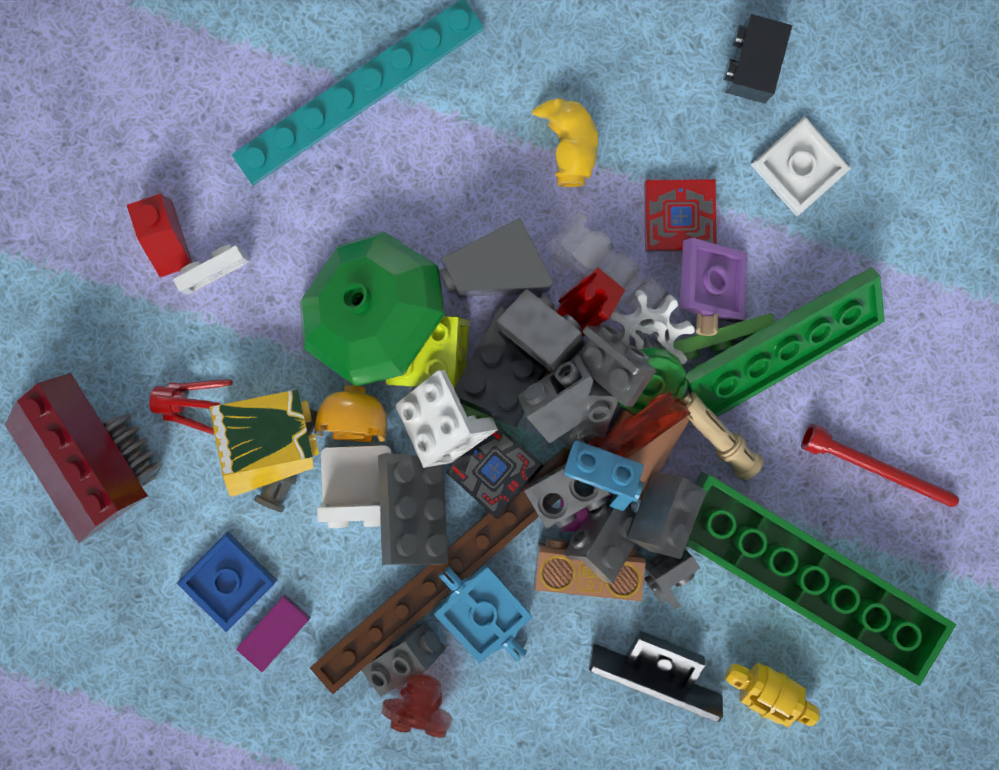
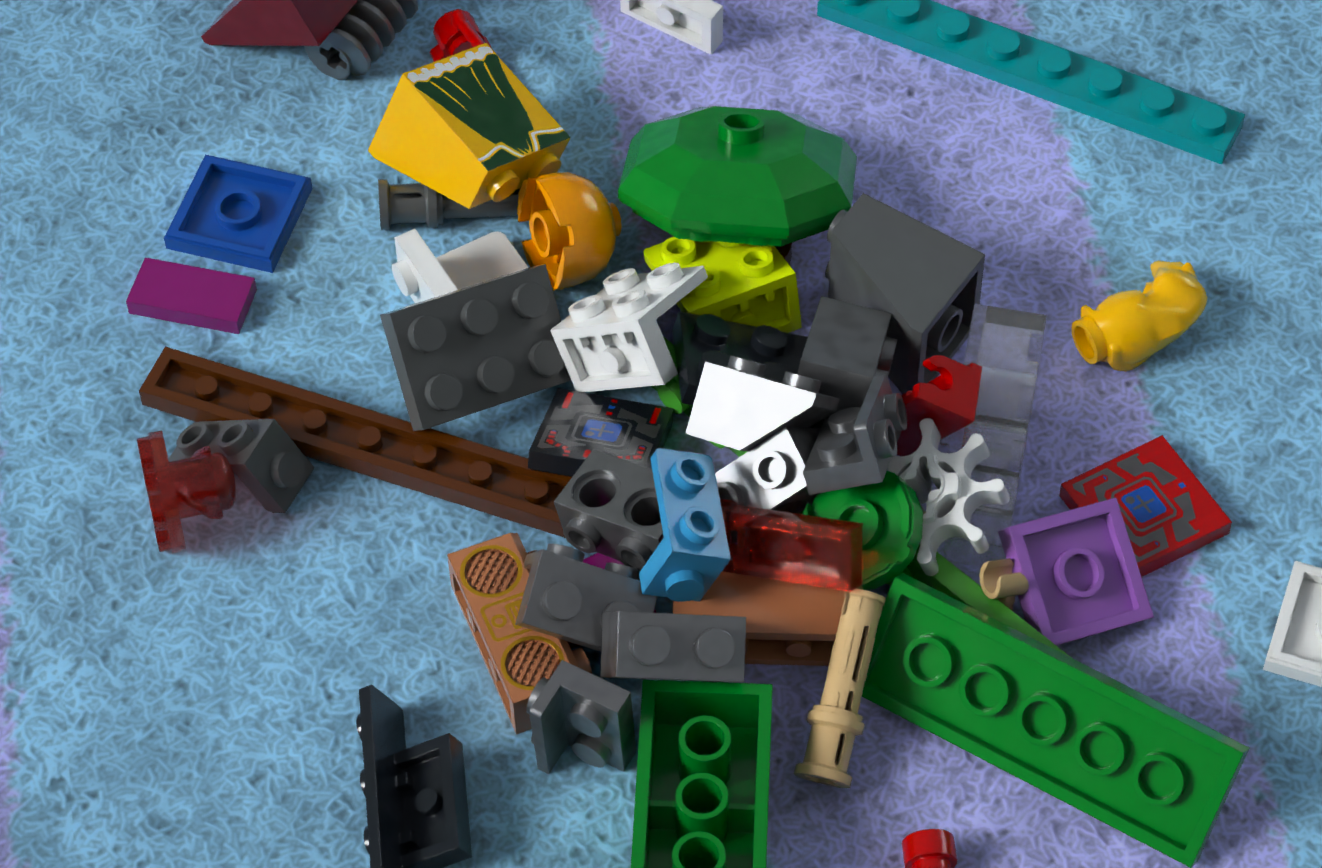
camera: 65 degrees right, 35 degrees down
(482, 613) = (369, 522): dark azure plate -> none

